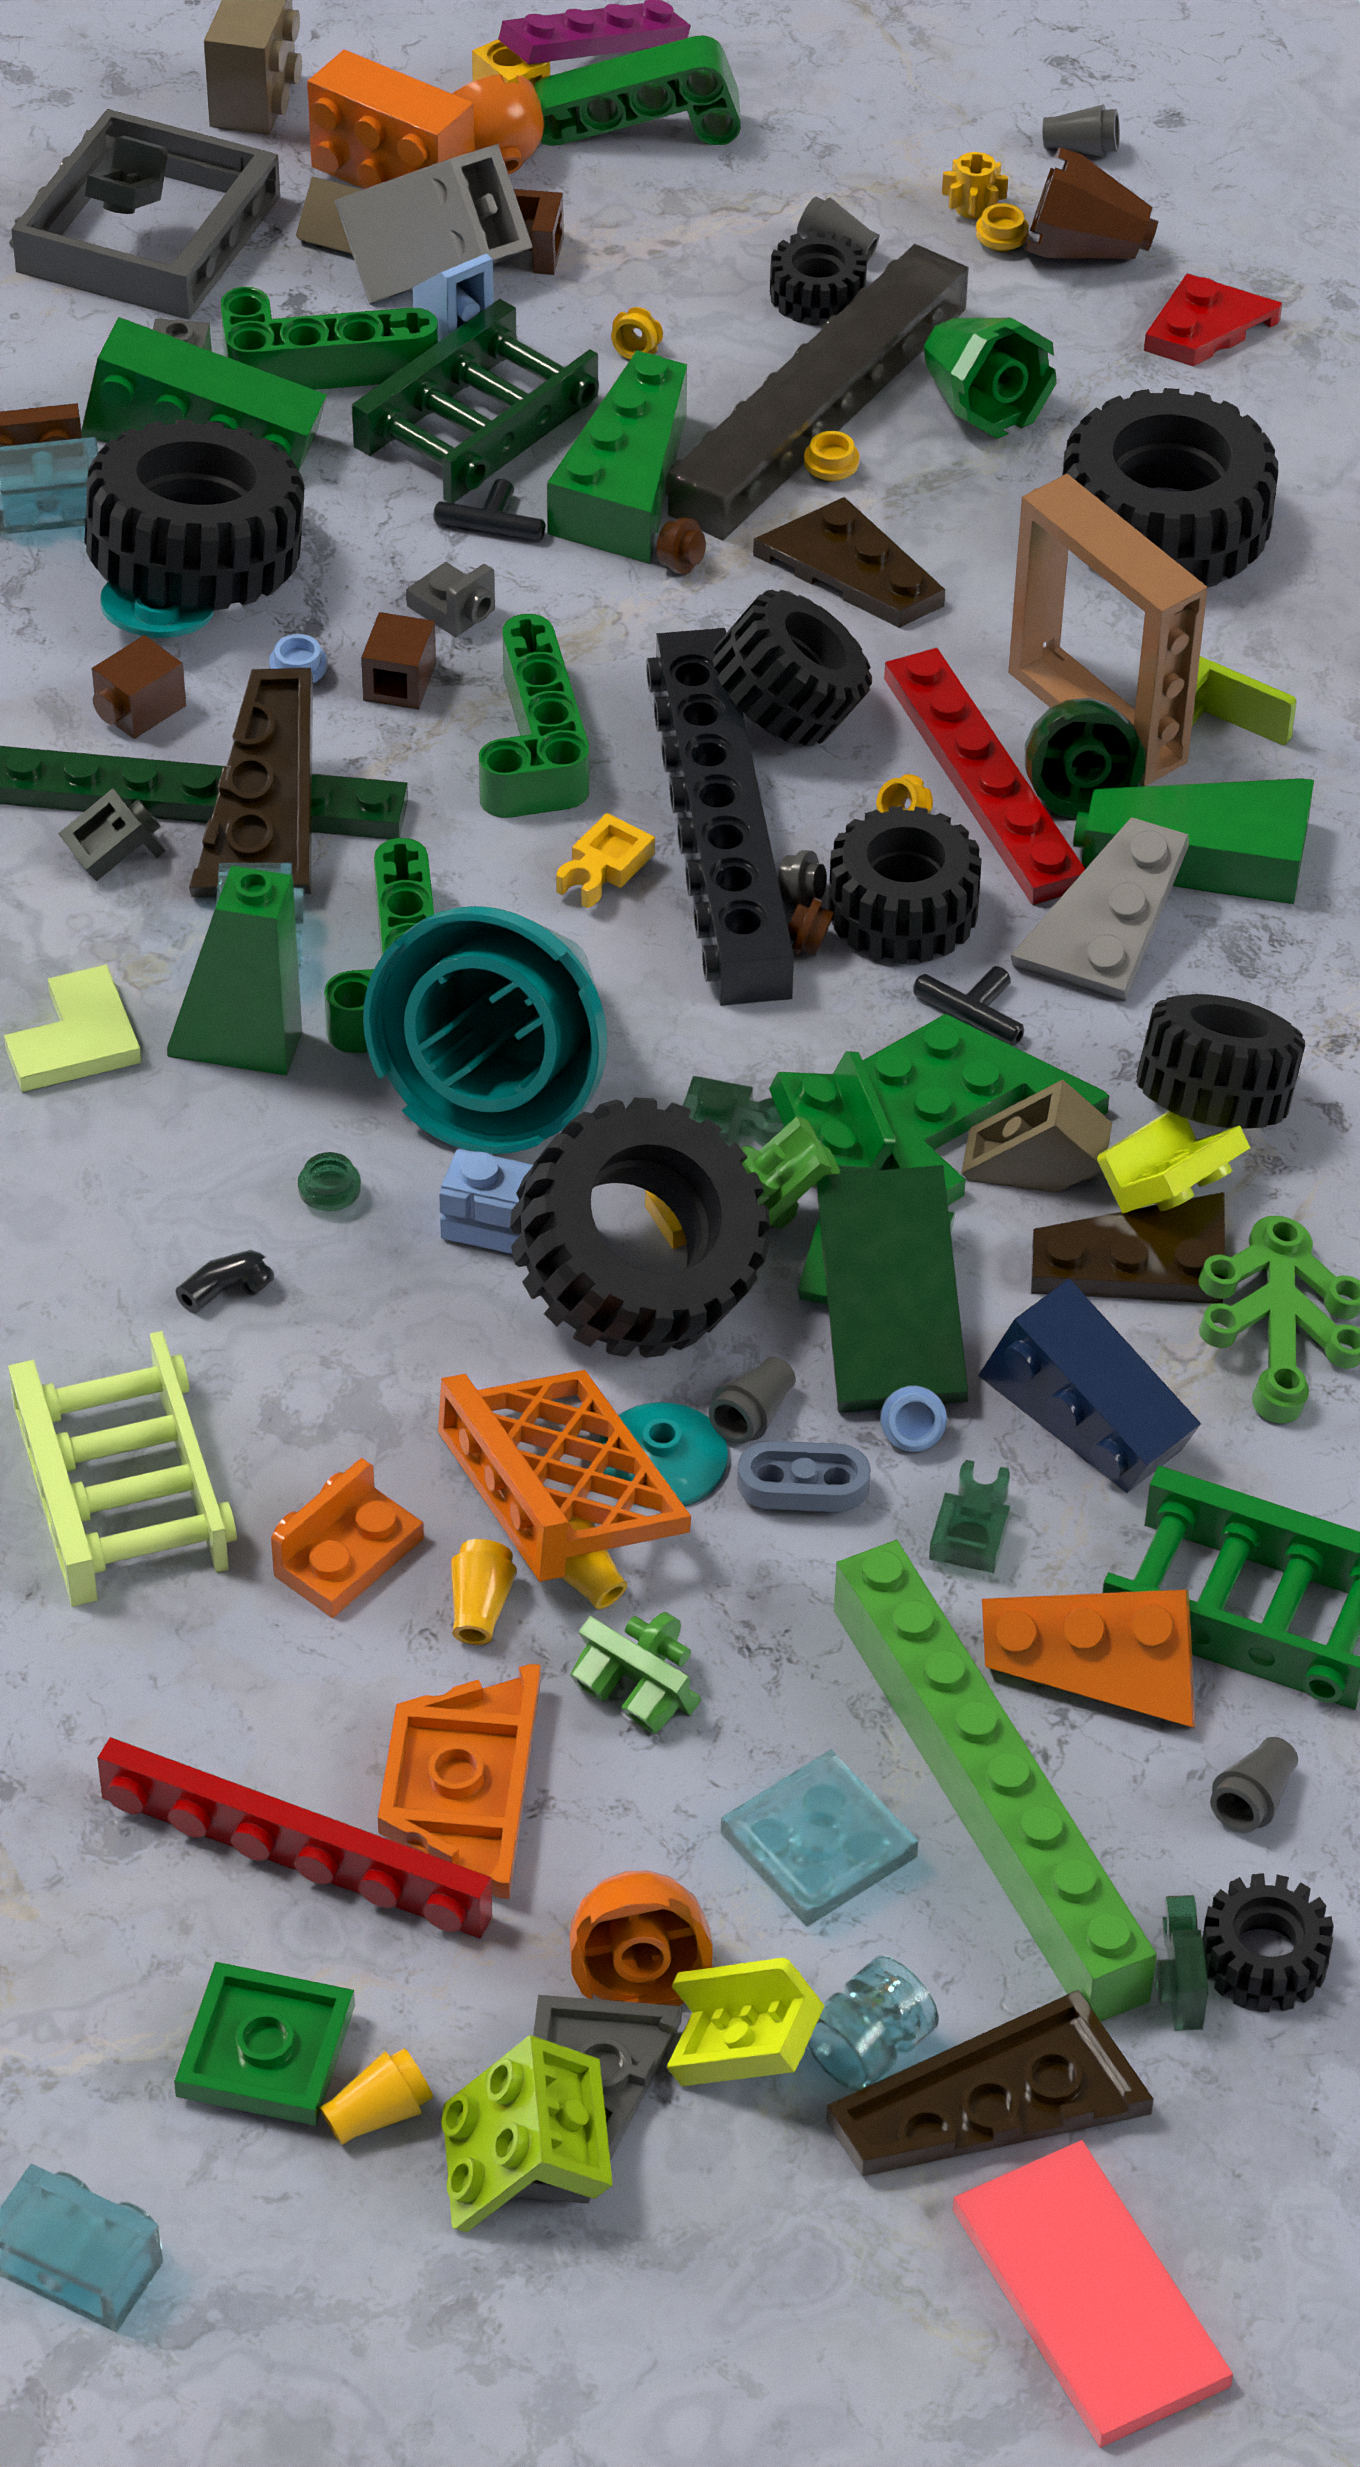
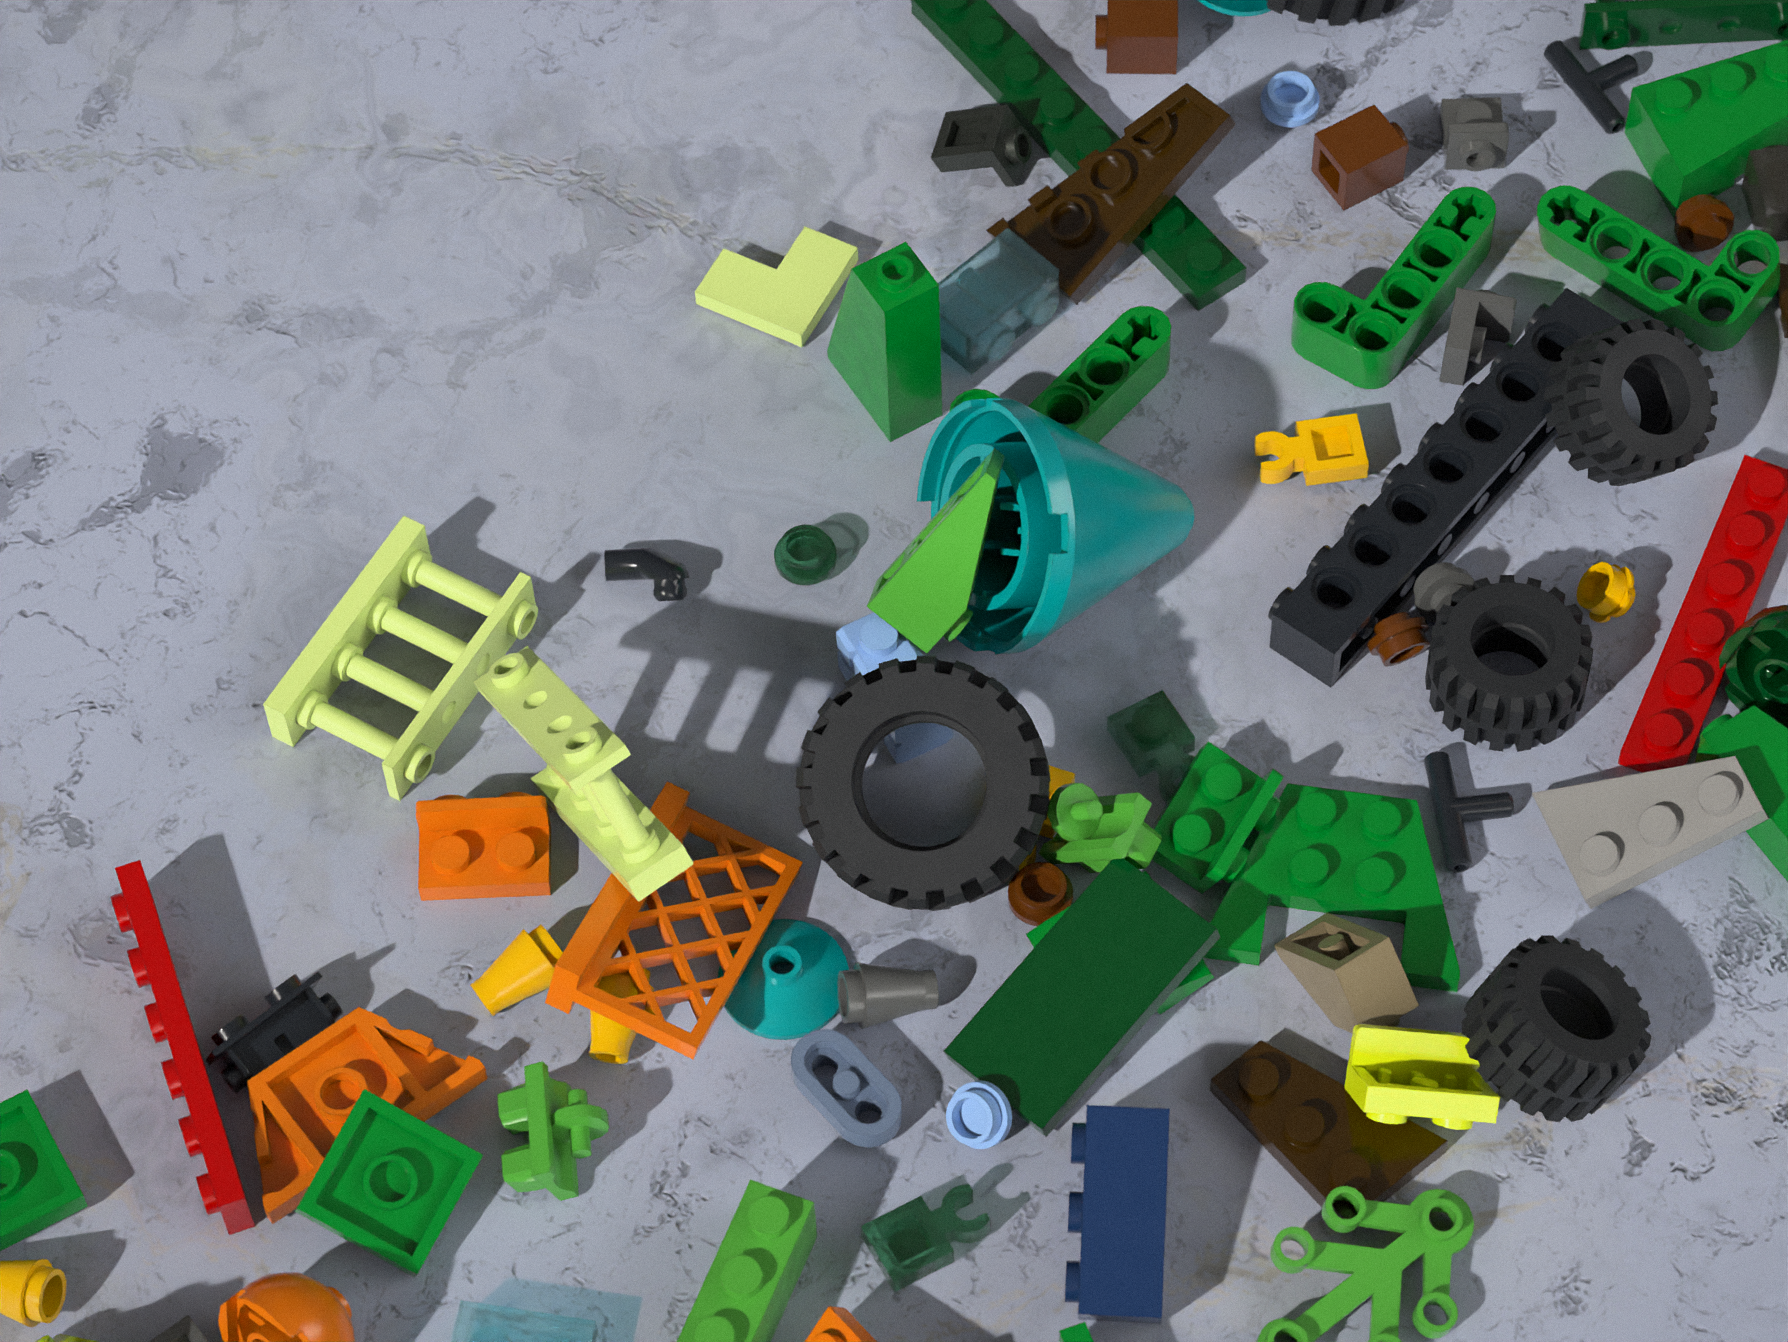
camera: 50 degrees right, 10 degrees up
(347, 1752) = (292, 1012): none -> black hinge
(415, 1431) = (580, 775): none -> yellowish green fence
(481, 1076) = (934, 576): none -> bright green slope
(574, 1787) = (389, 1183): none -> green plate
(611, 597) = (1653, 258): none -> green beam
(613, 713) = (1473, 319): none -> dark grey bracket
(783, 1261) = (1039, 892): none -> reddish brown plate

